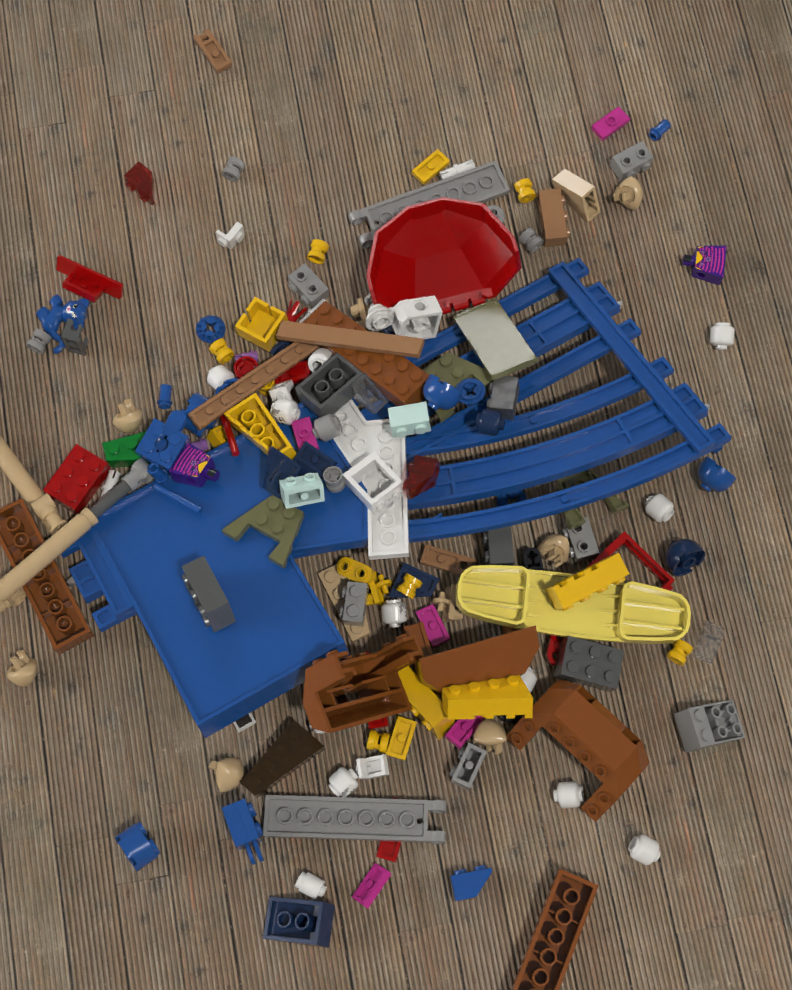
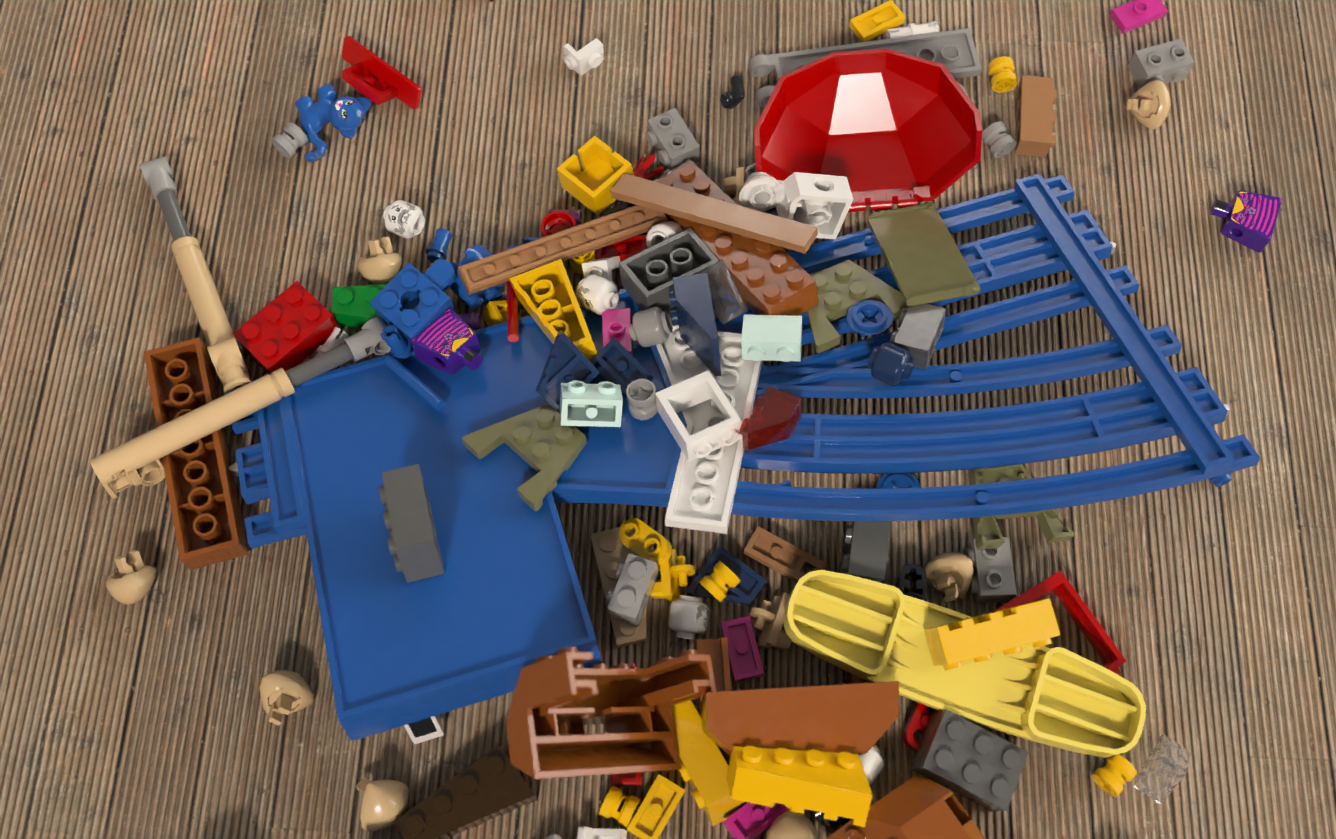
camera: 15 degrees right, 5 degrees down
(72, 338) = (334, 145): dark grey hinge -> none
(136, 383) = (404, 219): none -> white head
(146, 720) = (283, 694): none -> tan piece
(209, 336) = (519, 178): blue gear -> none
(218, 375) = (517, 230): white head -> none
(221, 351) = (533, 204): yellow wheel -> none
(318, 251) = (695, 101): yellow wheel -> none
(344, 242) = (736, 95): none -> black arm
(355, 414) = (696, 318): none -> dark blue slope
(440, 394) = (826, 309): blue cylinder -> none
(578, 194) = (1078, 92): tan slope -> none
(657, 132) = (1203, 34): blue pin -> none
(659, 508) = (1119, 548): white head -> none
(683, 555) = (1145, 627): dark blue cylinder -> none
(714, 476) = (1212, 518): blue cylinder -> none
(722, 335) = (1255, 321): white head -> none

